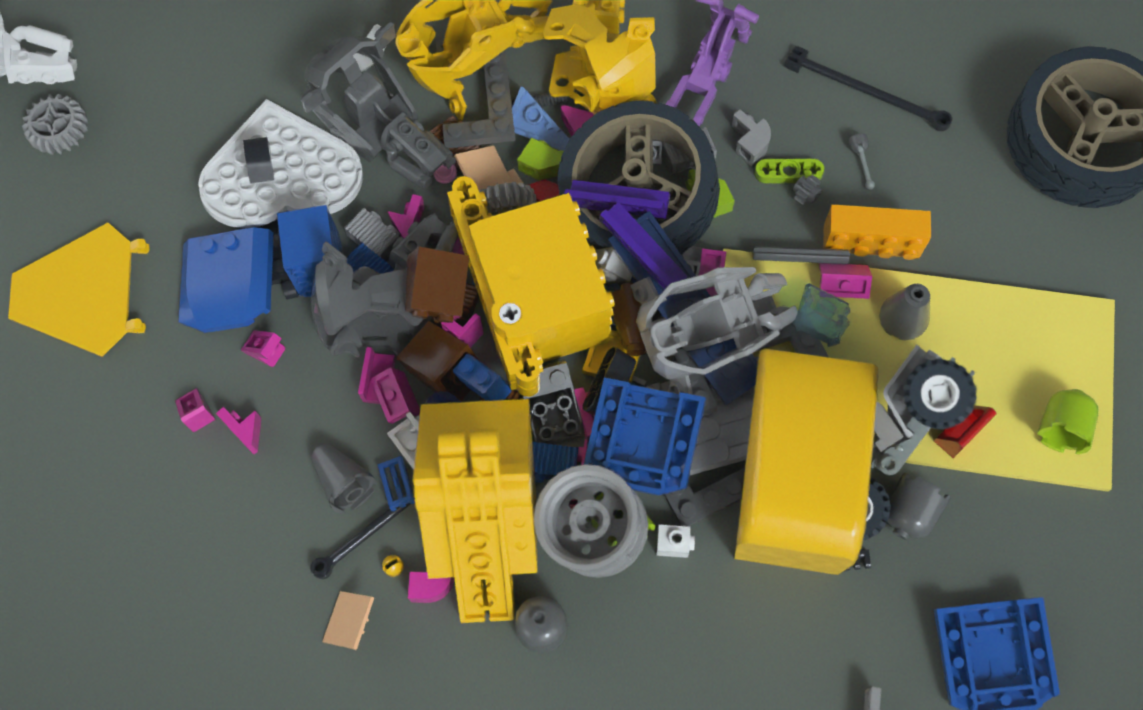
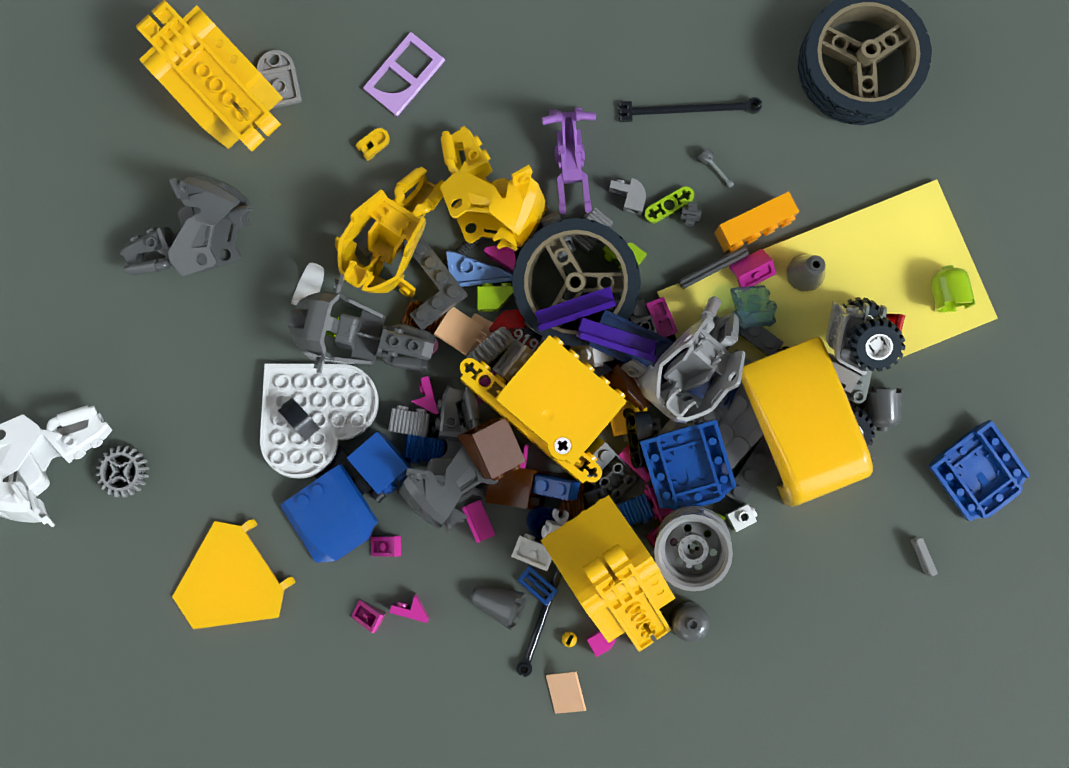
camera: 30 degrees left, 15 degrees up
(395, 394) = (500, 527): dark pink panel -> none

